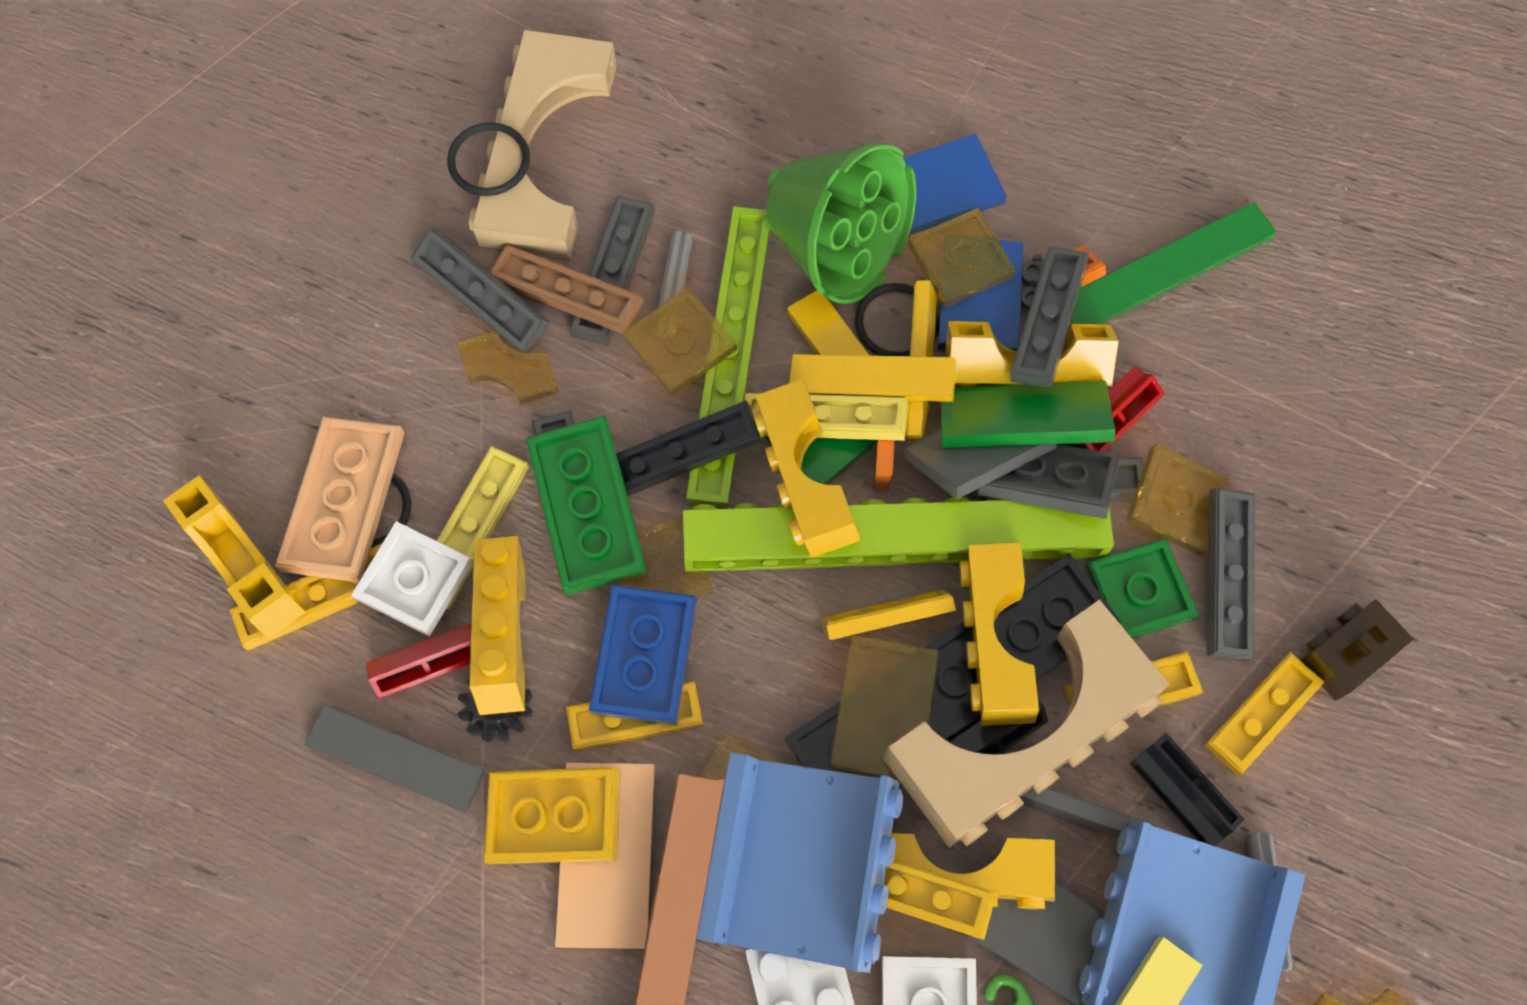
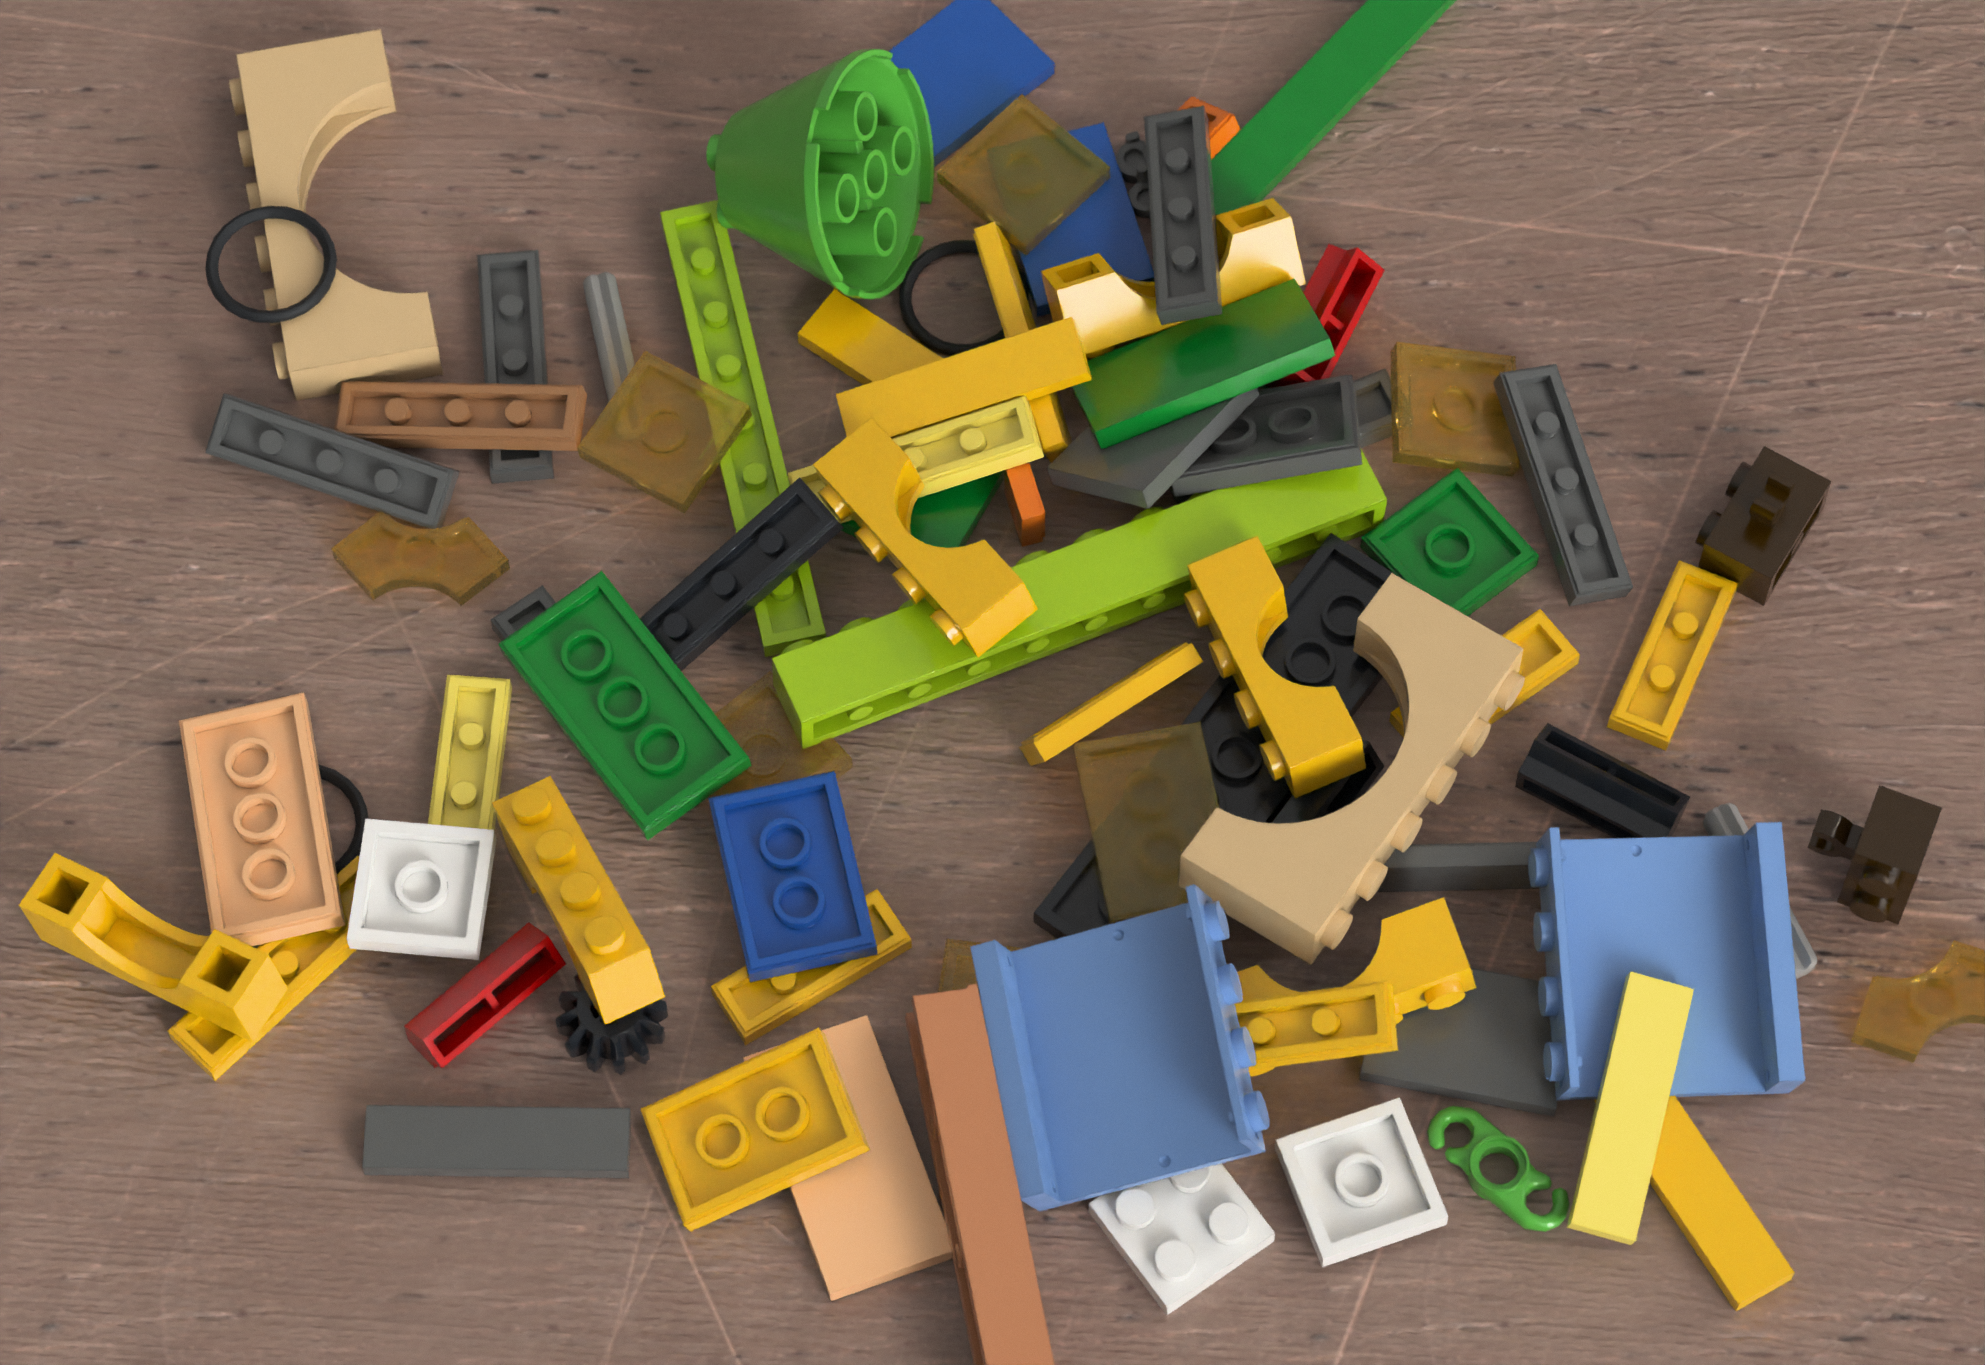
camera: 20 degrees left, 5 degrees down
(1366, 915) = (1882, 854): none -> dark brown brick

